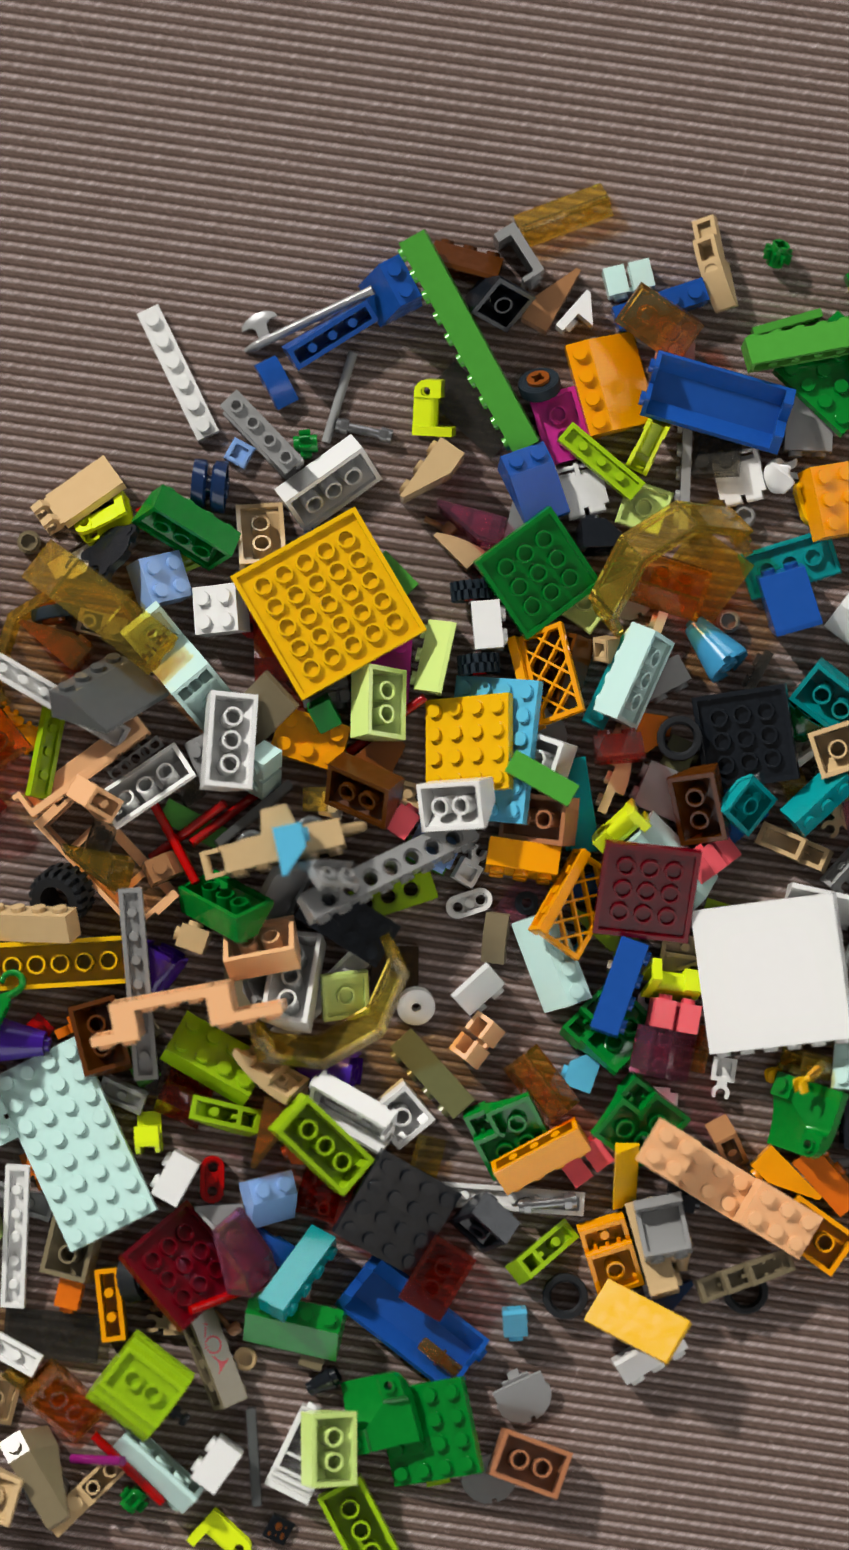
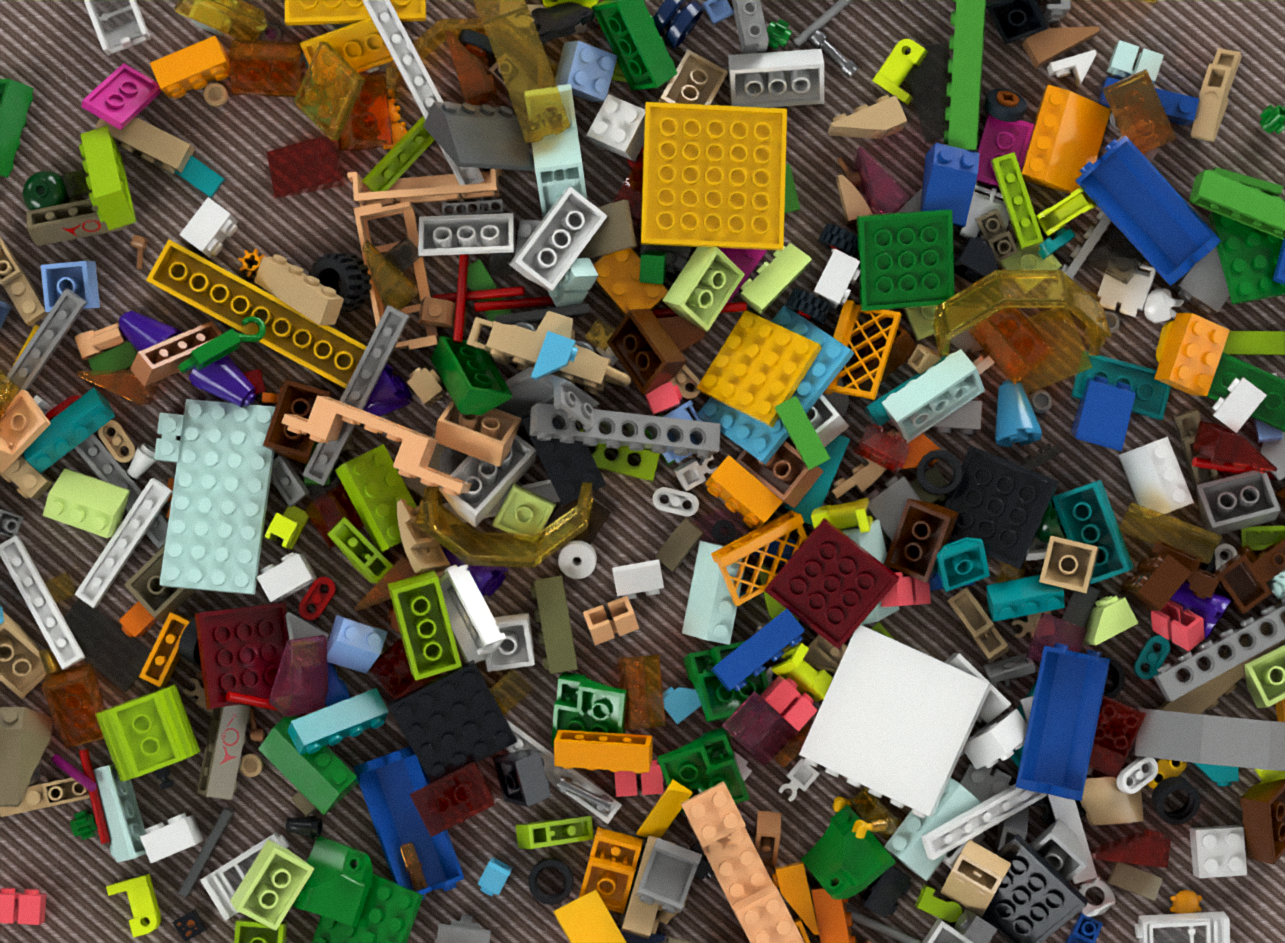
camera: 30 degrees right, 0 degrees up
(95, 798) = (416, 217): light nougat brick -> none
(455, 804) = (716, 410): white slope -> none
(601, 502) = (996, 234): none -> dark tan slope
(658, 469) = (1050, 246): none -> teal plate

